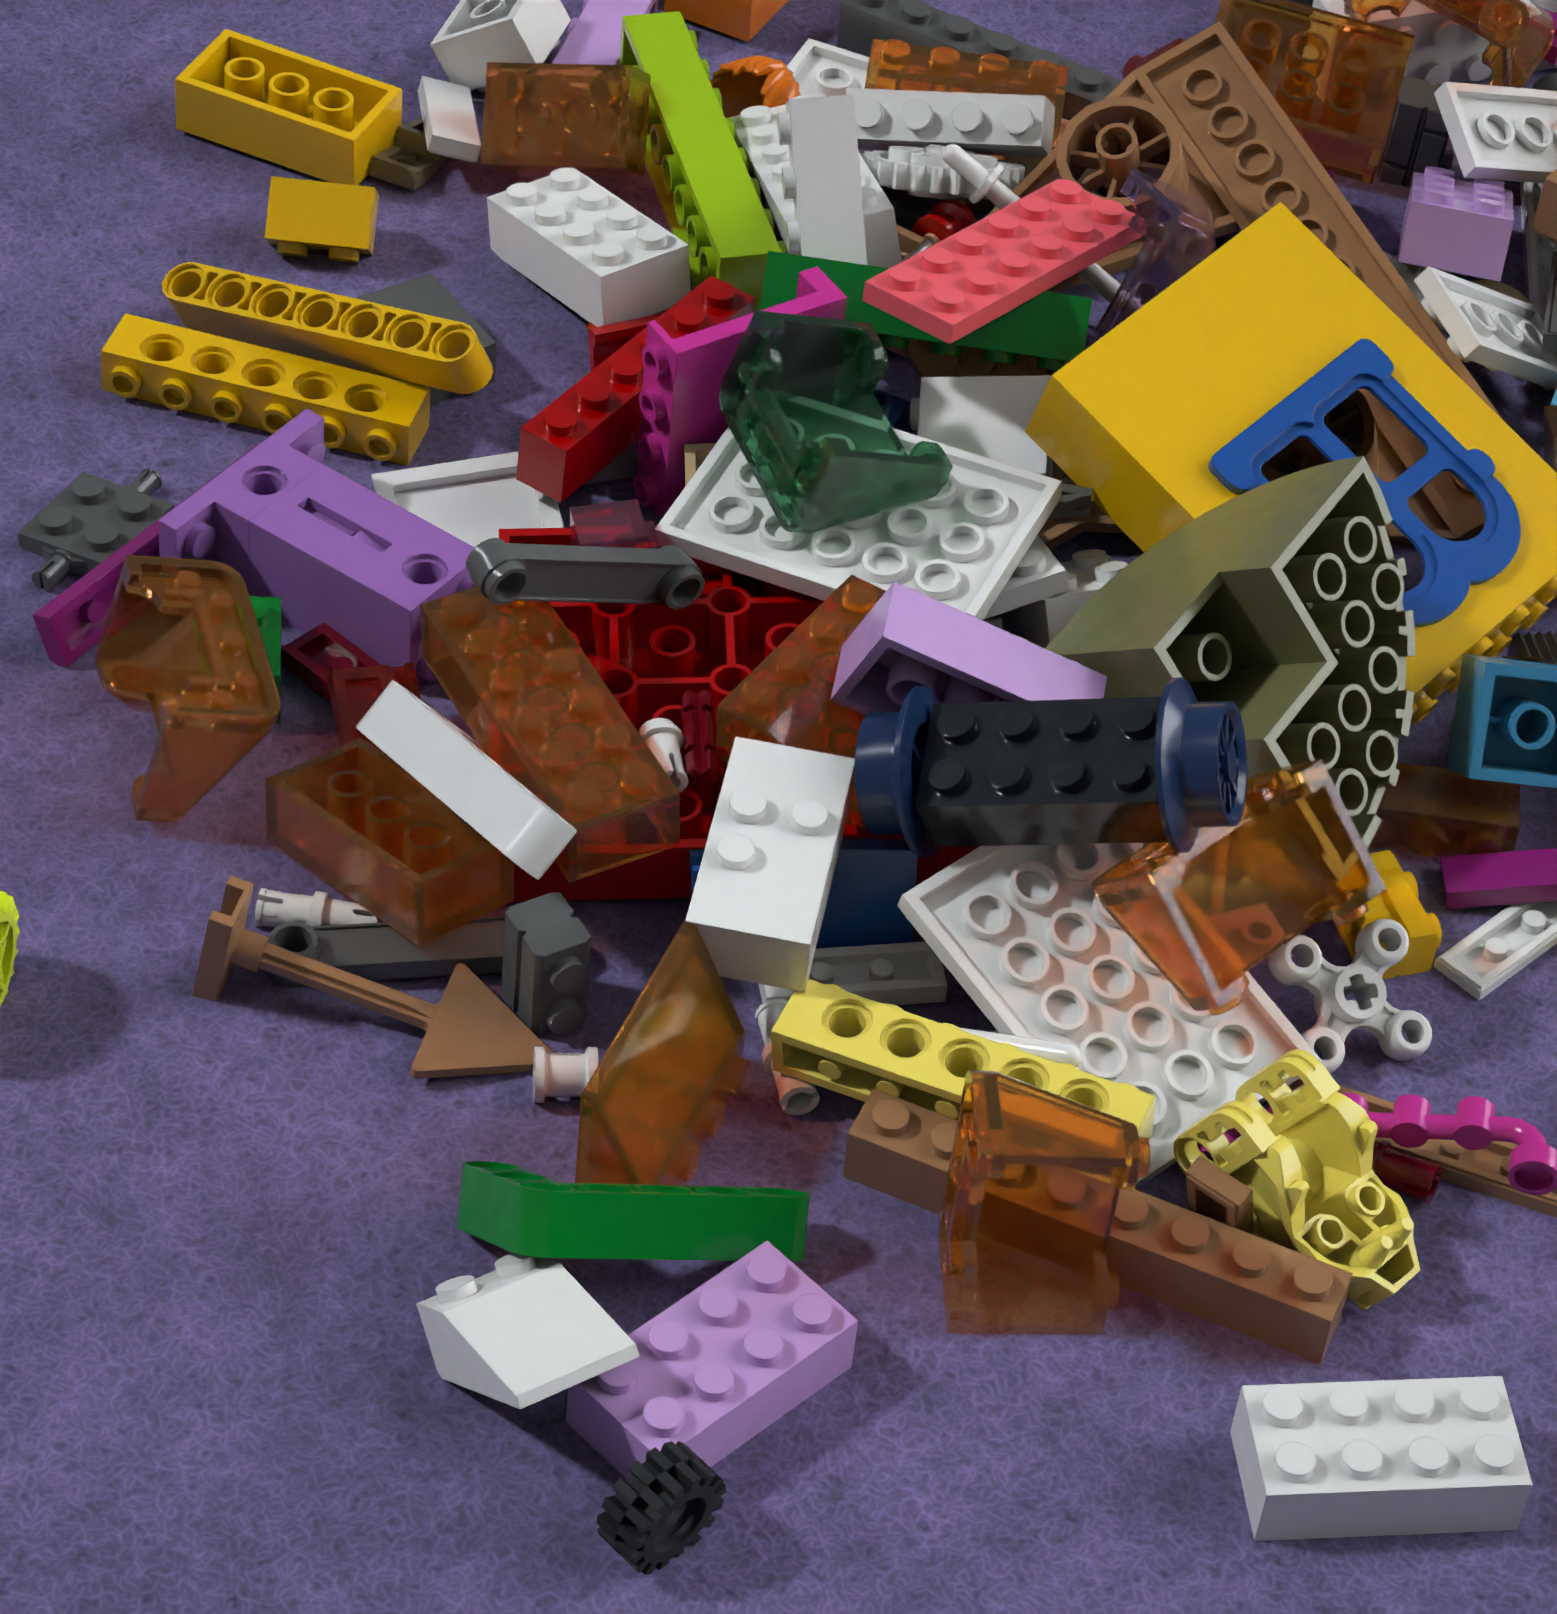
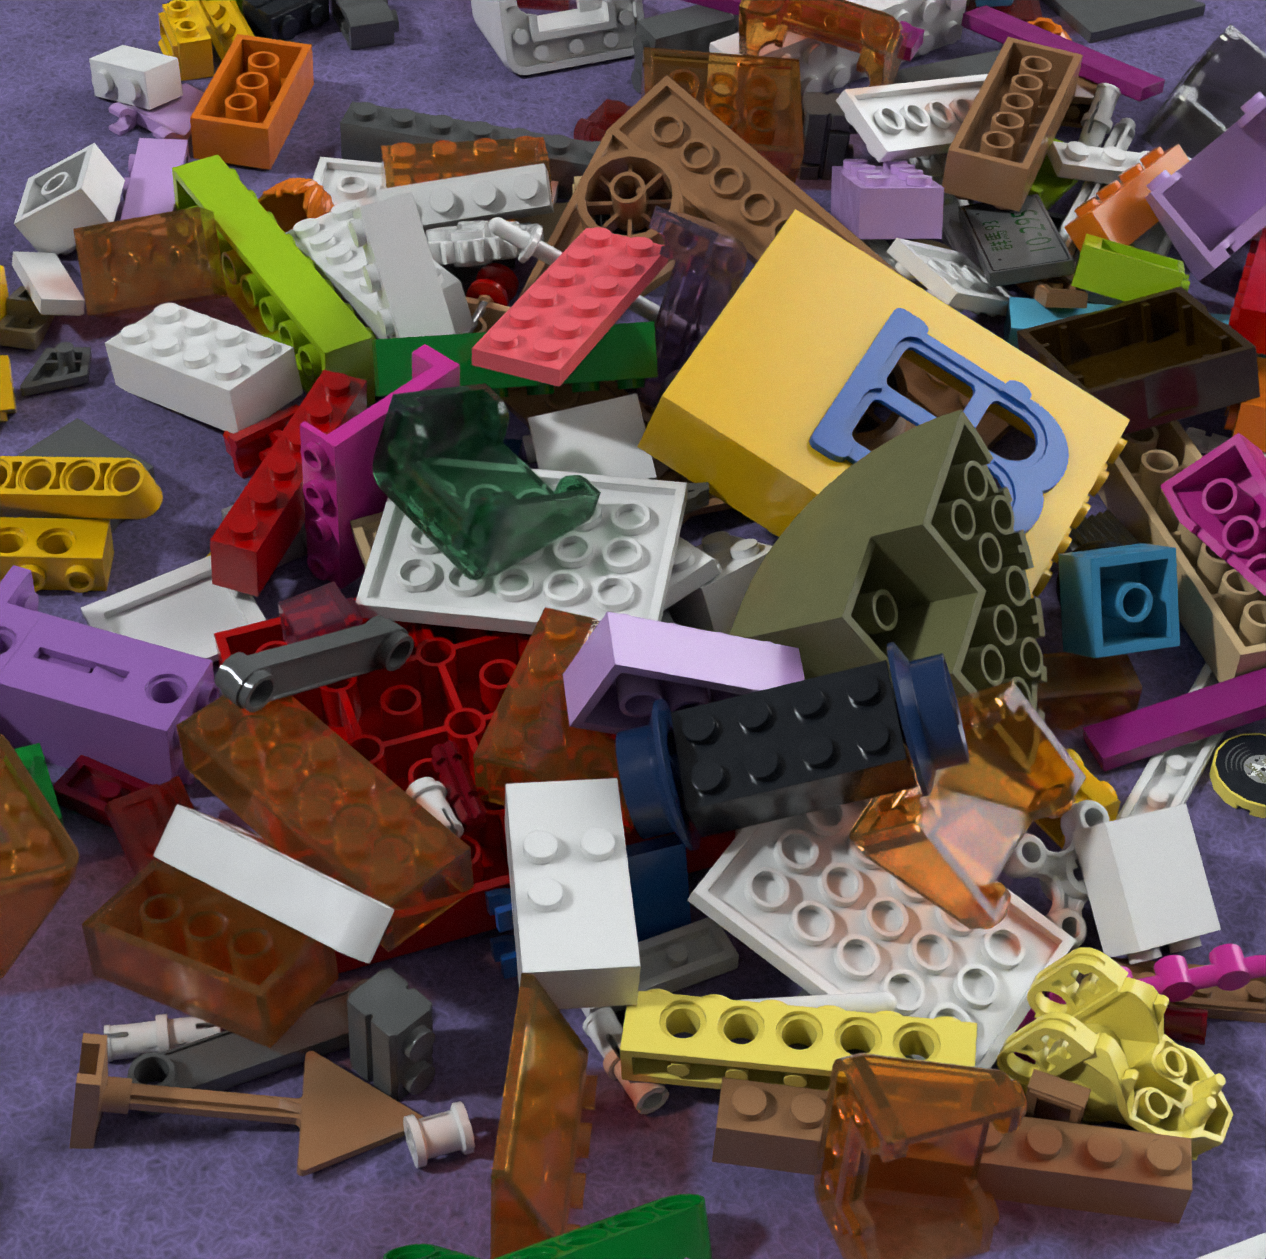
camera: 15 degrees left, 0 degrees up
(431, 217) = (58, 369): none -> dark grey piece
(1422, 1019) = (1146, 884): none -> white brick

